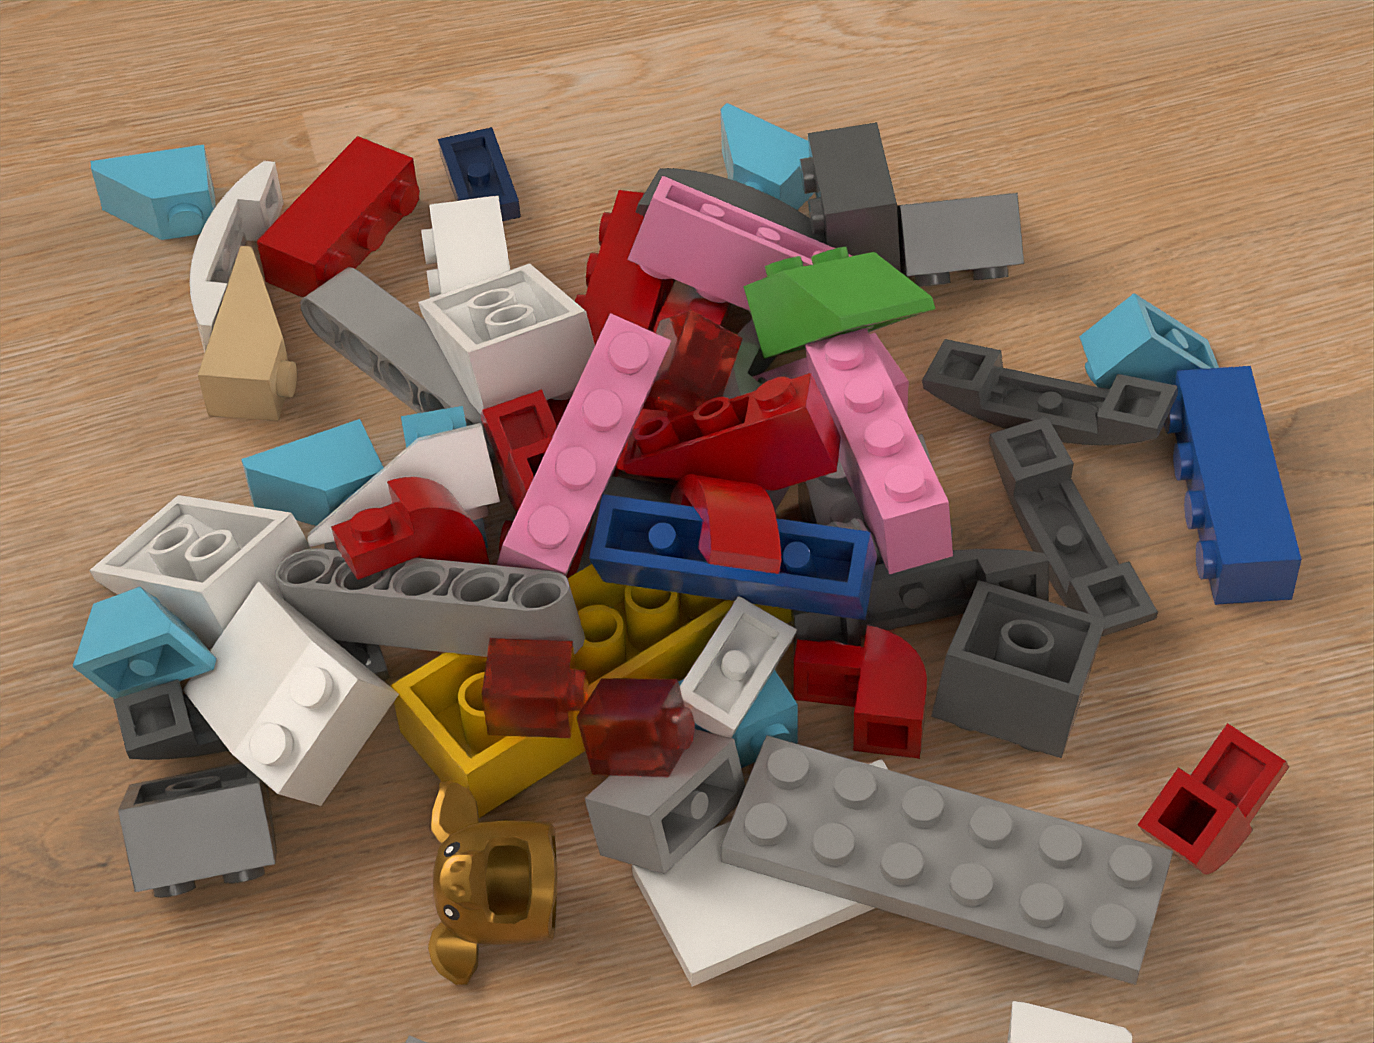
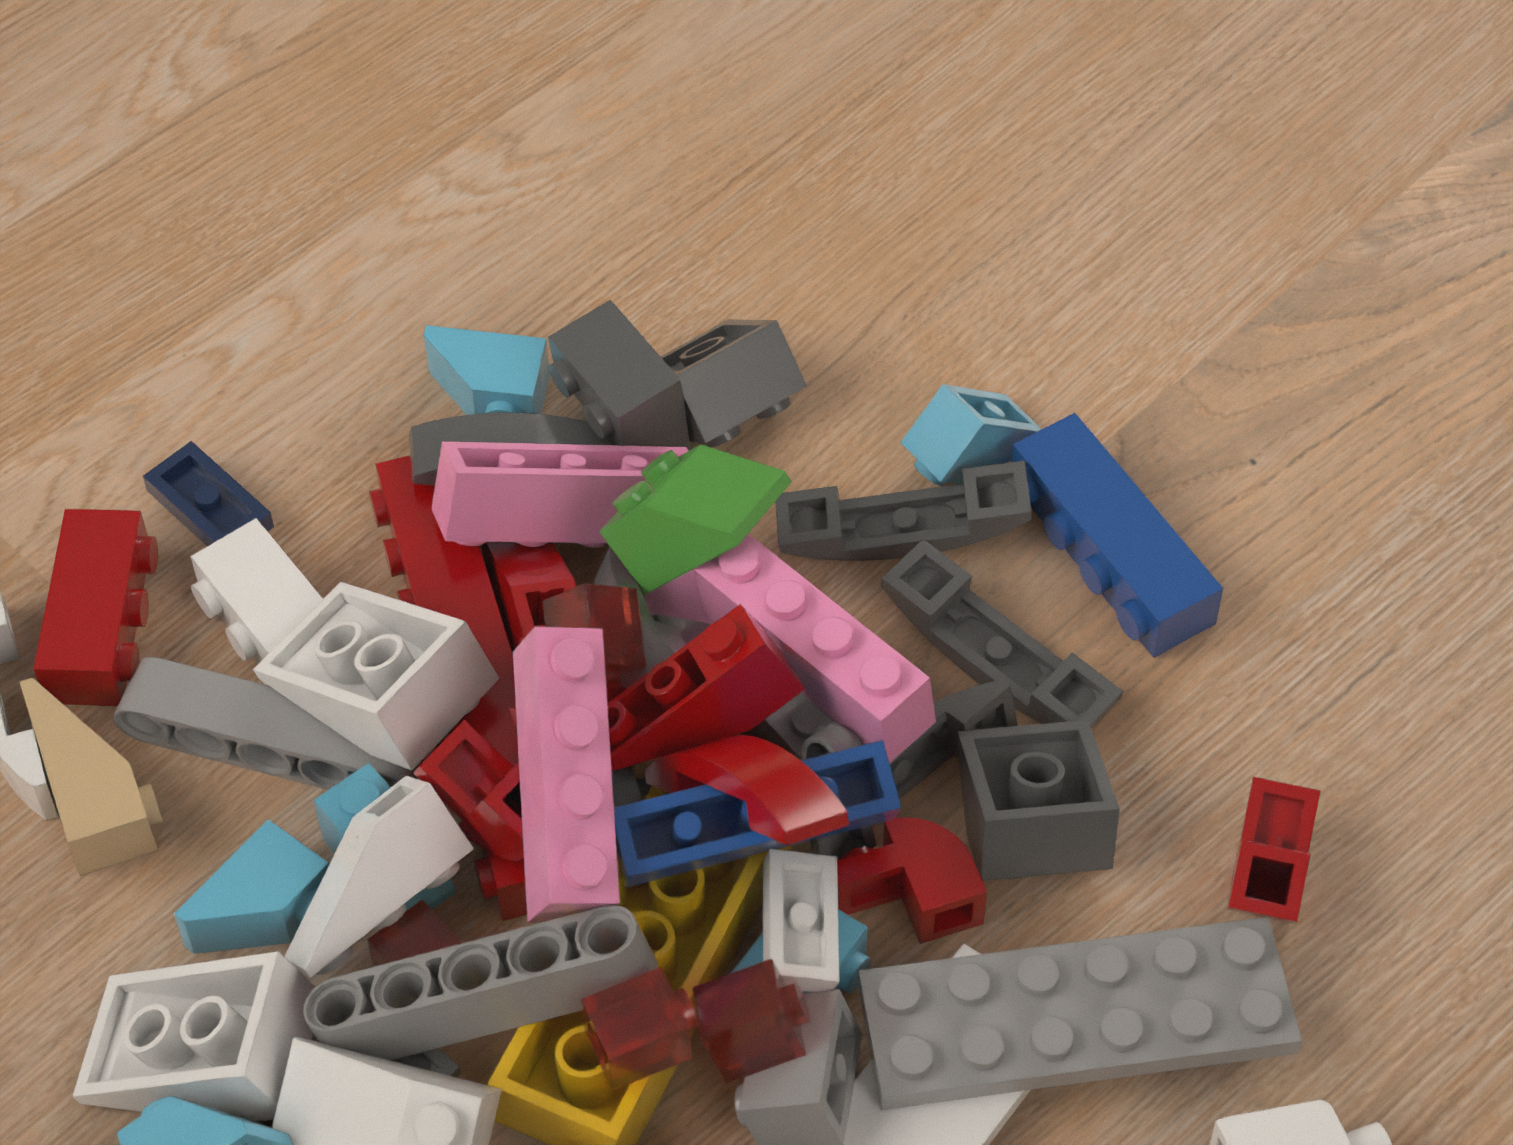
camera: 30 degrees left, 5 degrees up
(418, 524) = (425, 916): red brick -> none

